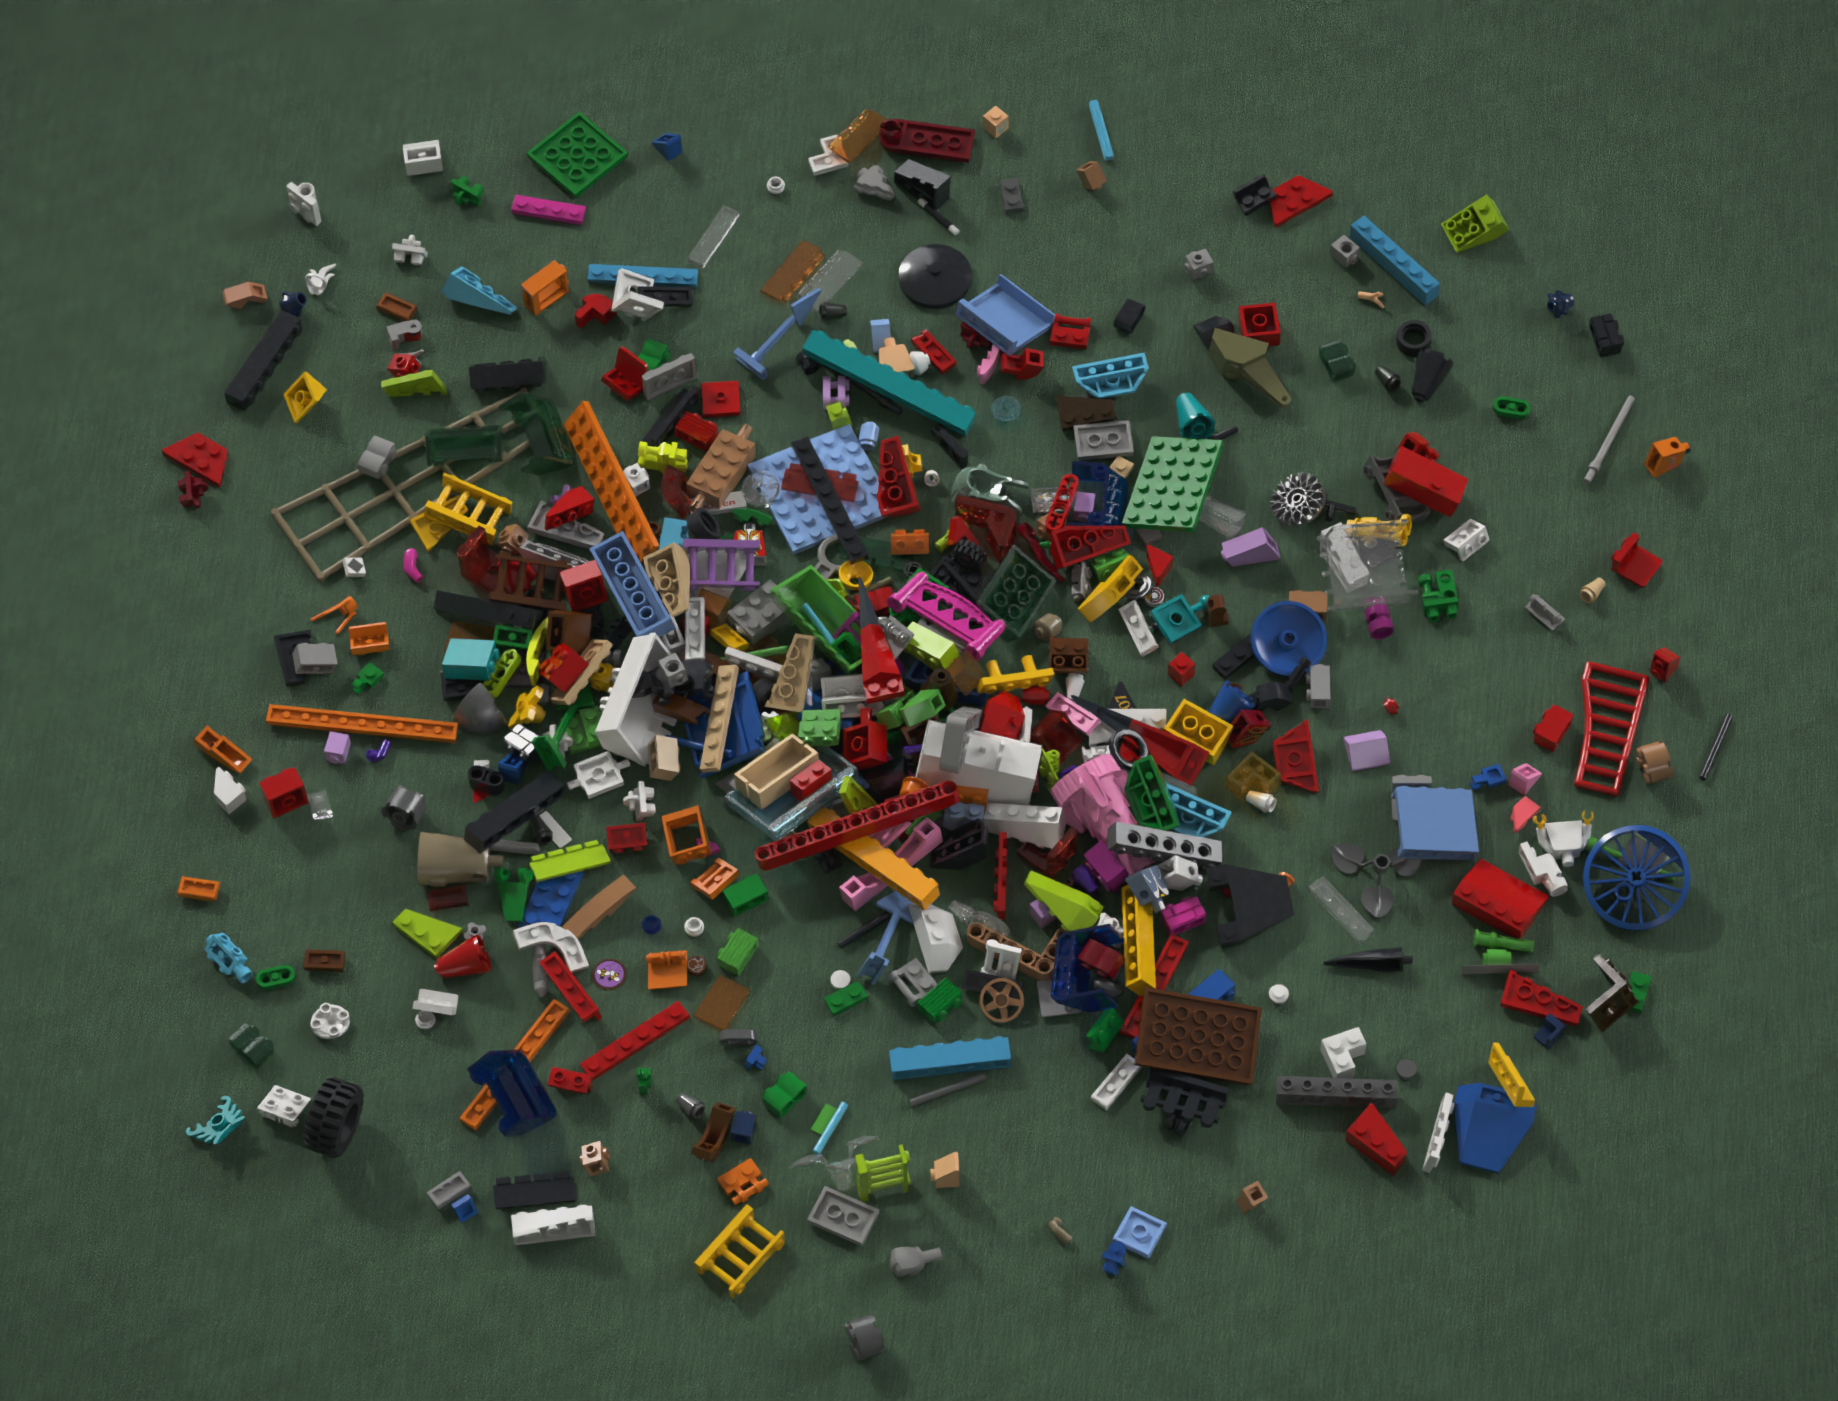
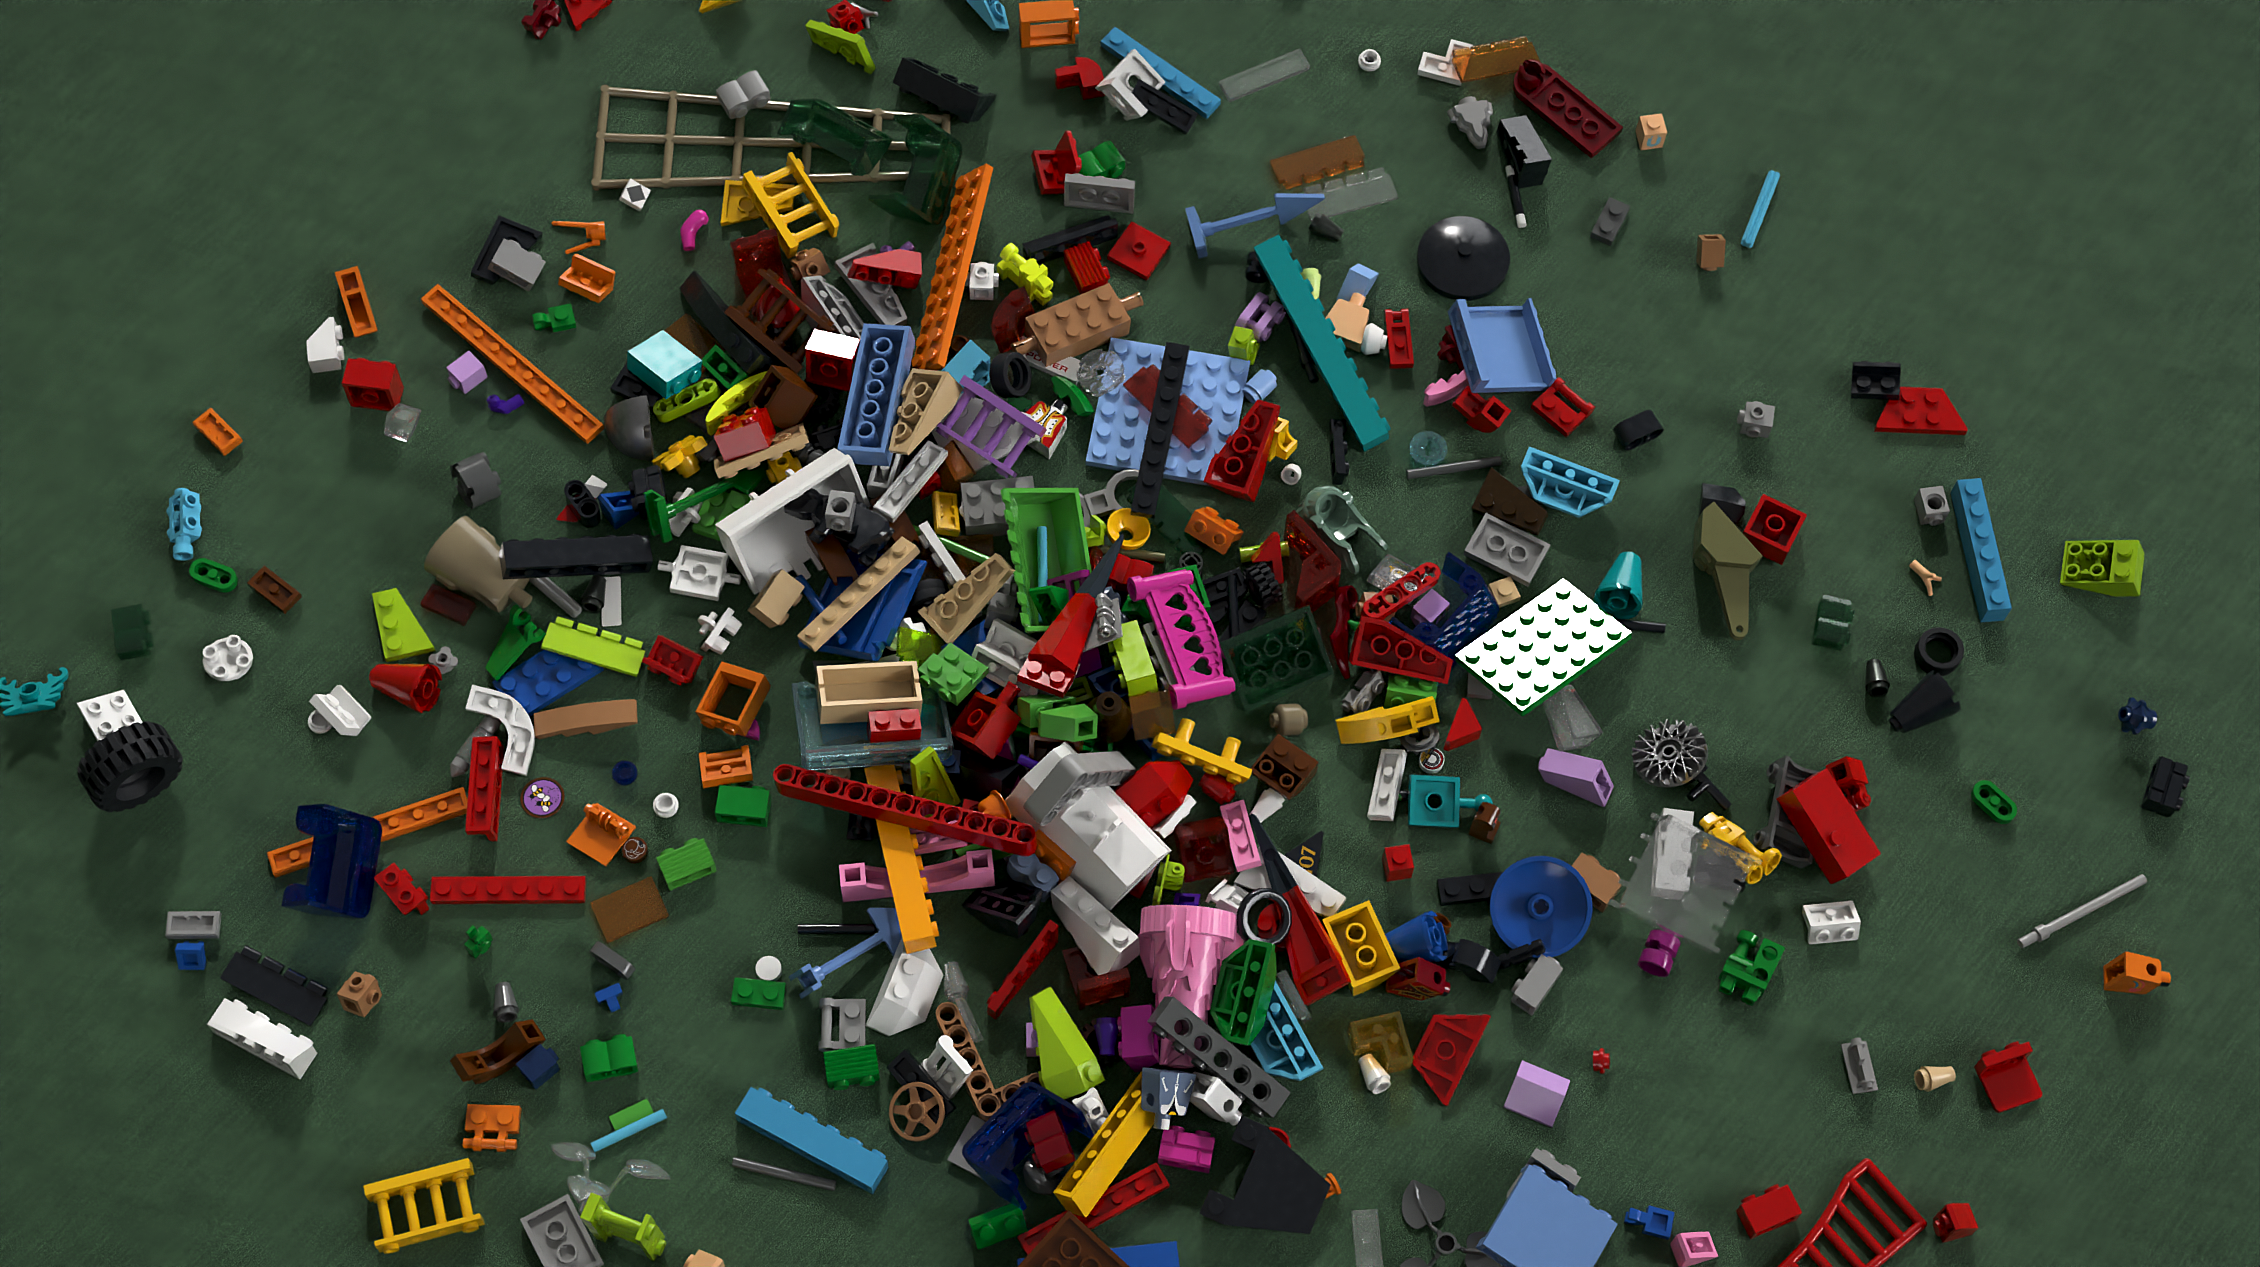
camera: 30 degrees right, 5 degrees up
(1030, 411) = (1453, 467): none -> dark grey bar

